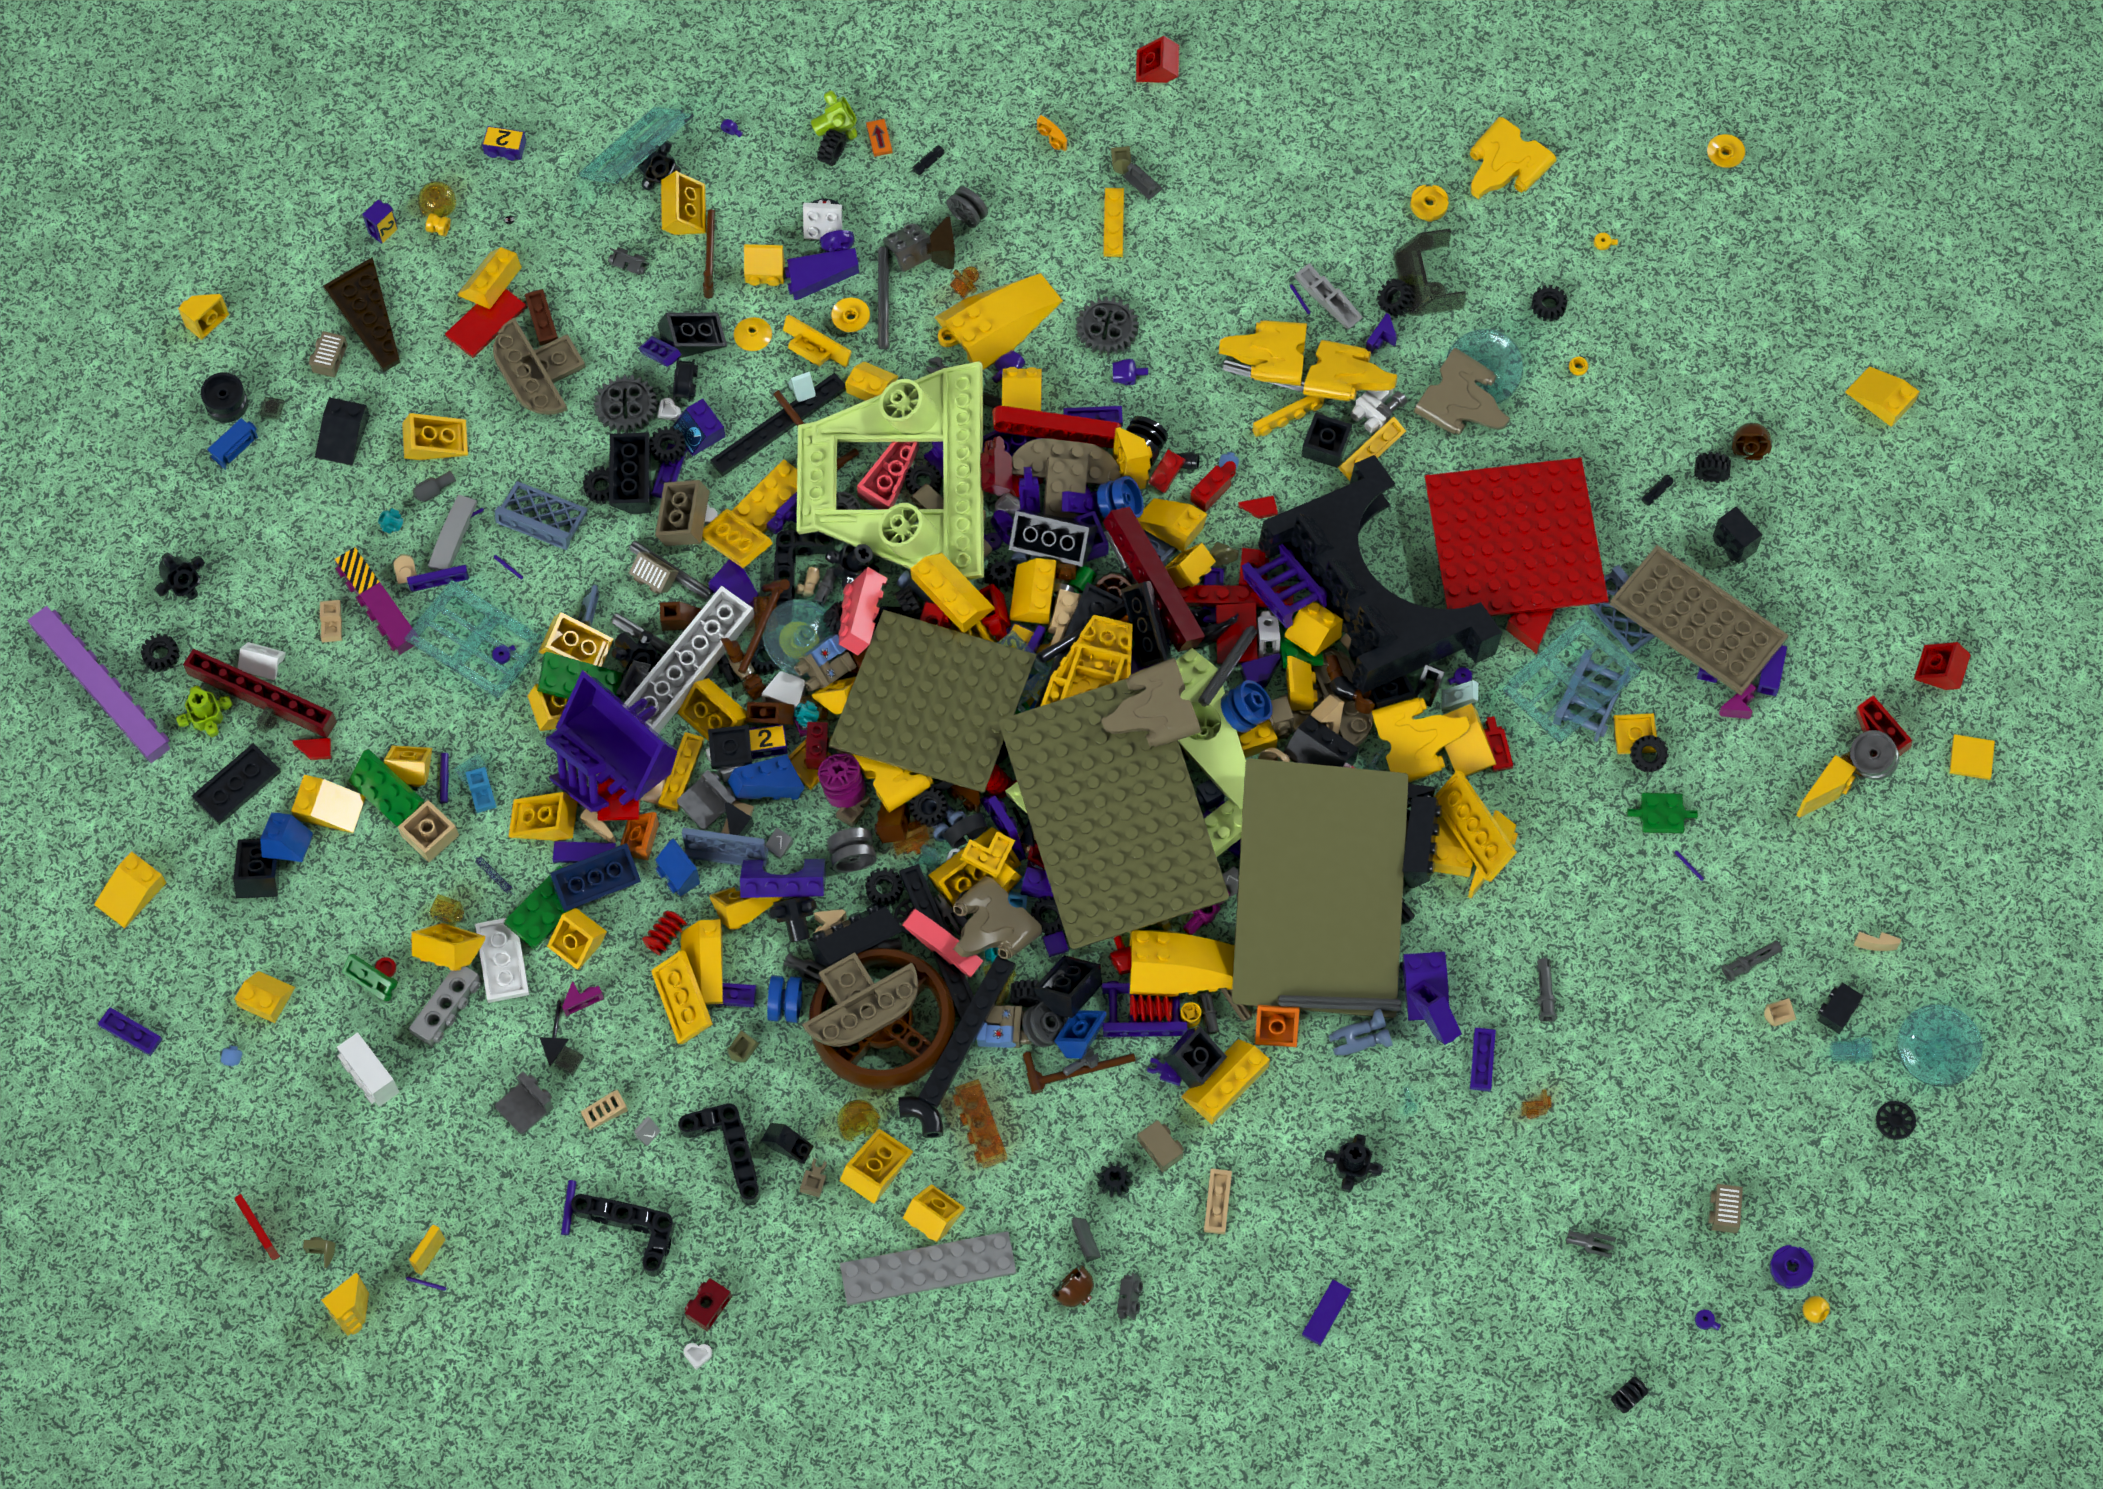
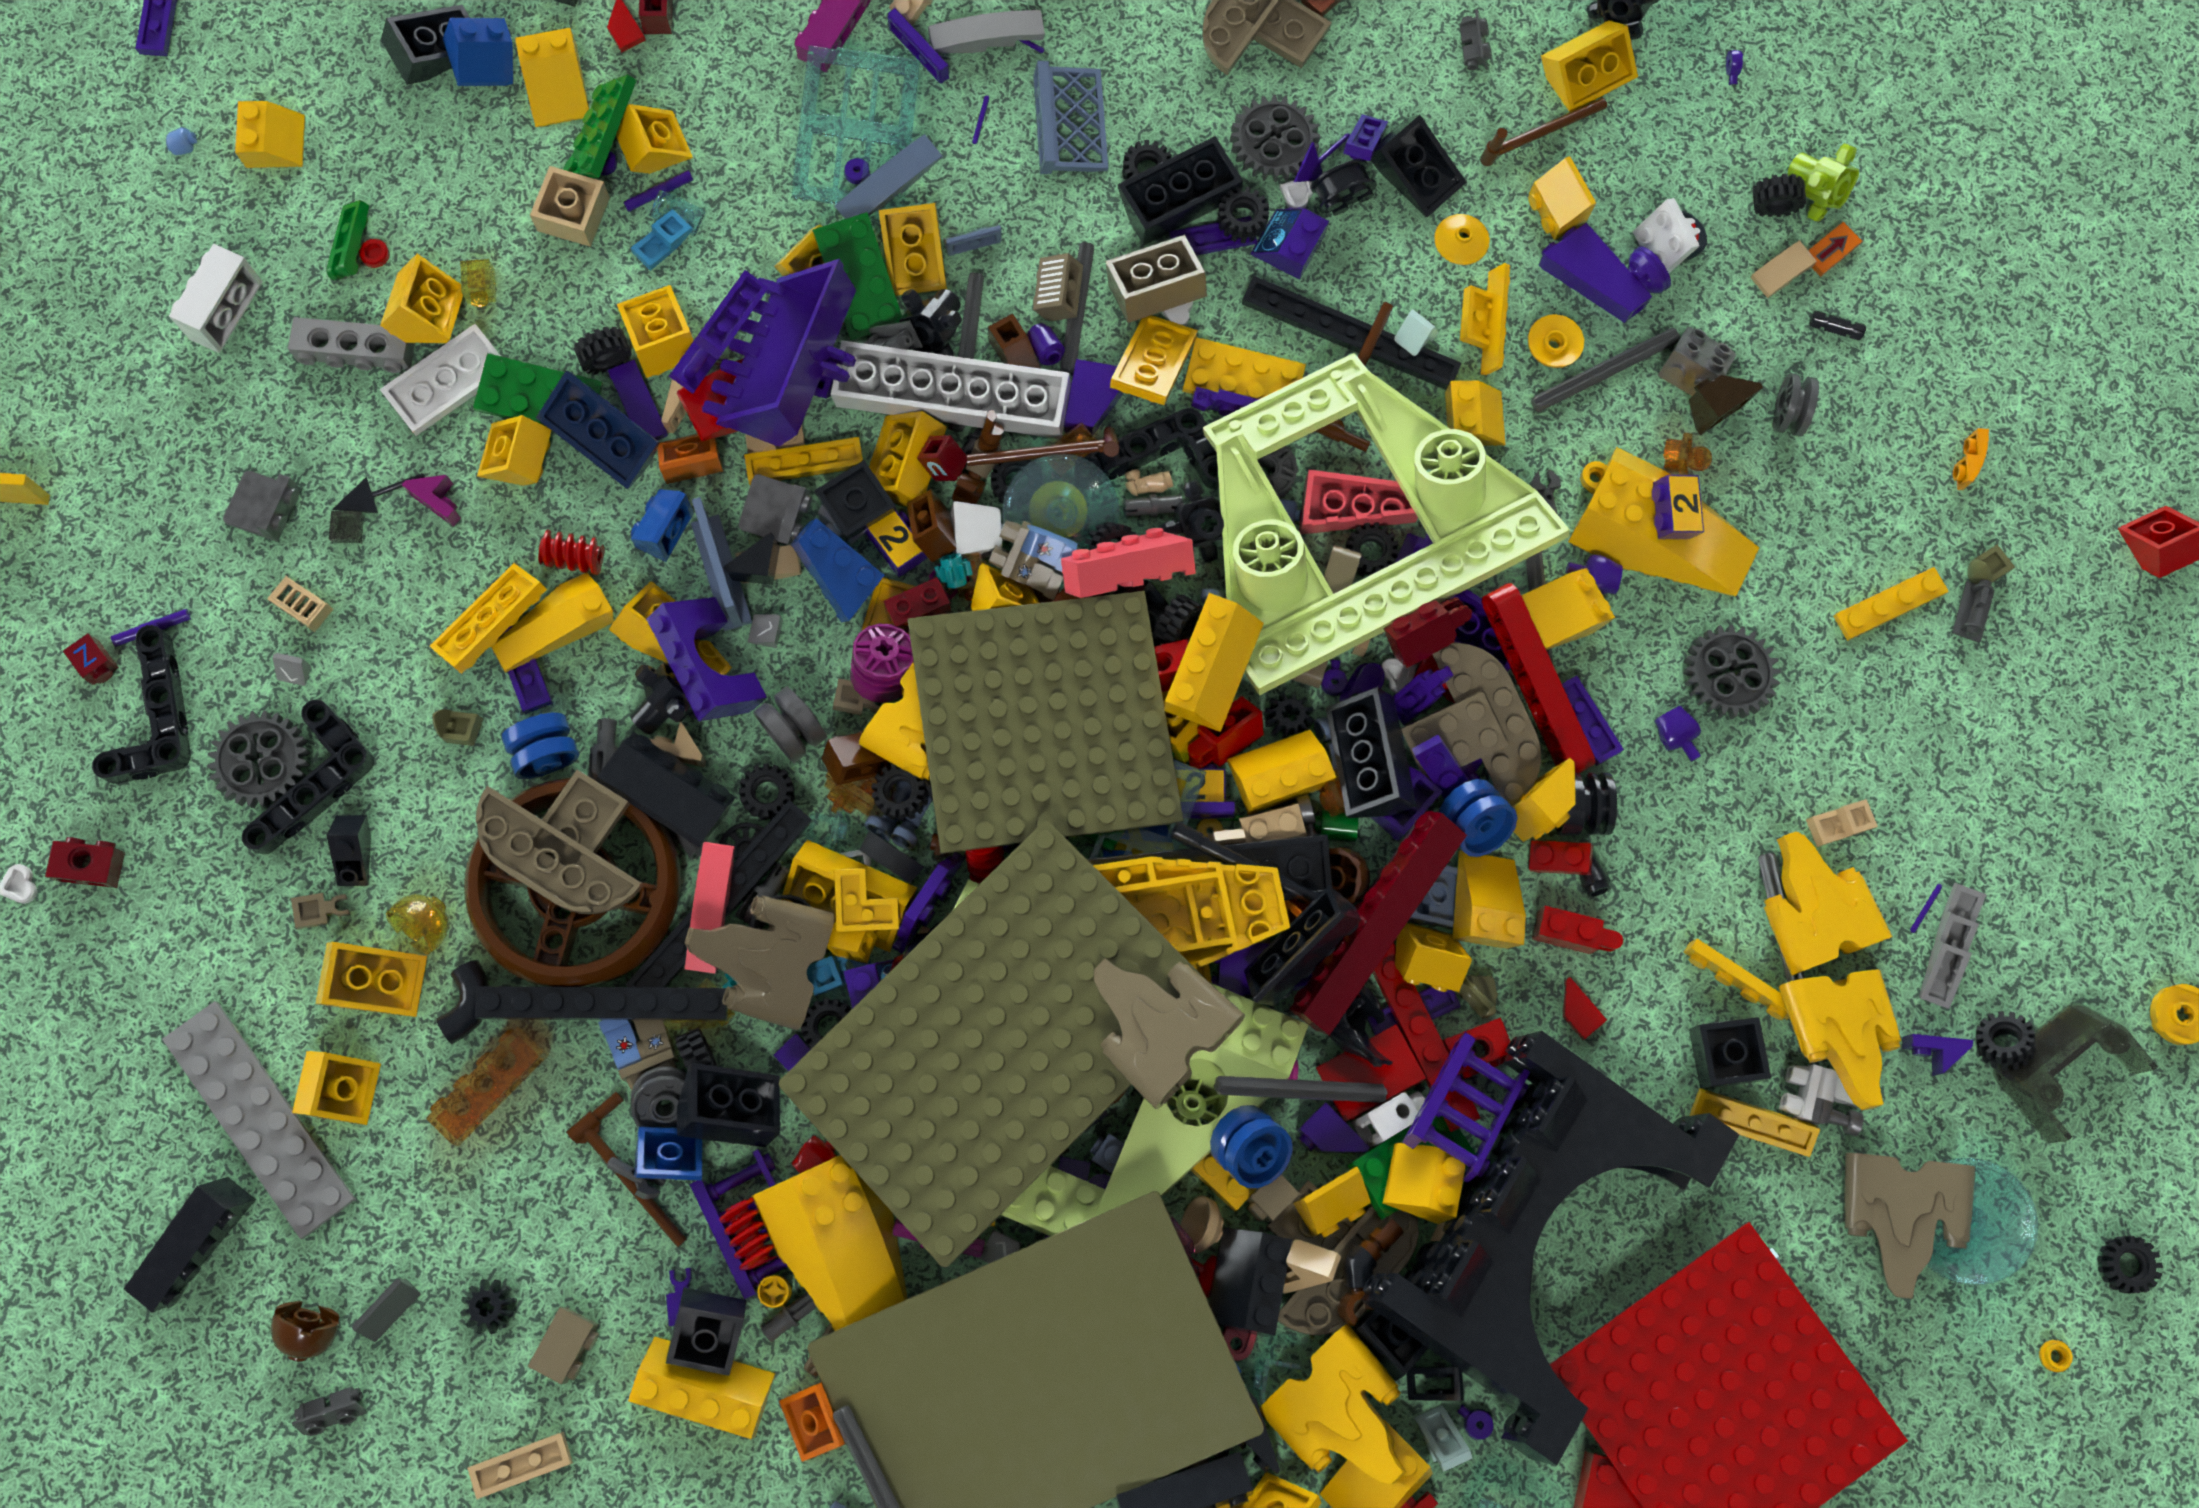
camera: 55 degrees right, 10 degrees up
(493, 874) = (554, 310): dark purple piece -> none
(525, 634) = (890, 179): none -> sand blue slope
(541, 853) = (602, 350): none -> black tyre
(572, 1249) = (91, 659): none -> dark red brick
(660, 393) = (1310, 167): none -> dark purple piece
(687, 595) = (1045, 344): none -> dark purple brick
(703, 1156) = (231, 765): none -> dark grey gear
(730, 686) = (942, 458): none -> dark red brick
(877, 170) = (1783, 269): none -> tan slope
(987, 1334) = (188, 1242): none -> black wedge
(996, 299) = (1678, 507): none -> brick
(1227, 316) = (1841, 823): none -> tan slope
(1228, 457) = (1628, 931): medium blue piece -> none

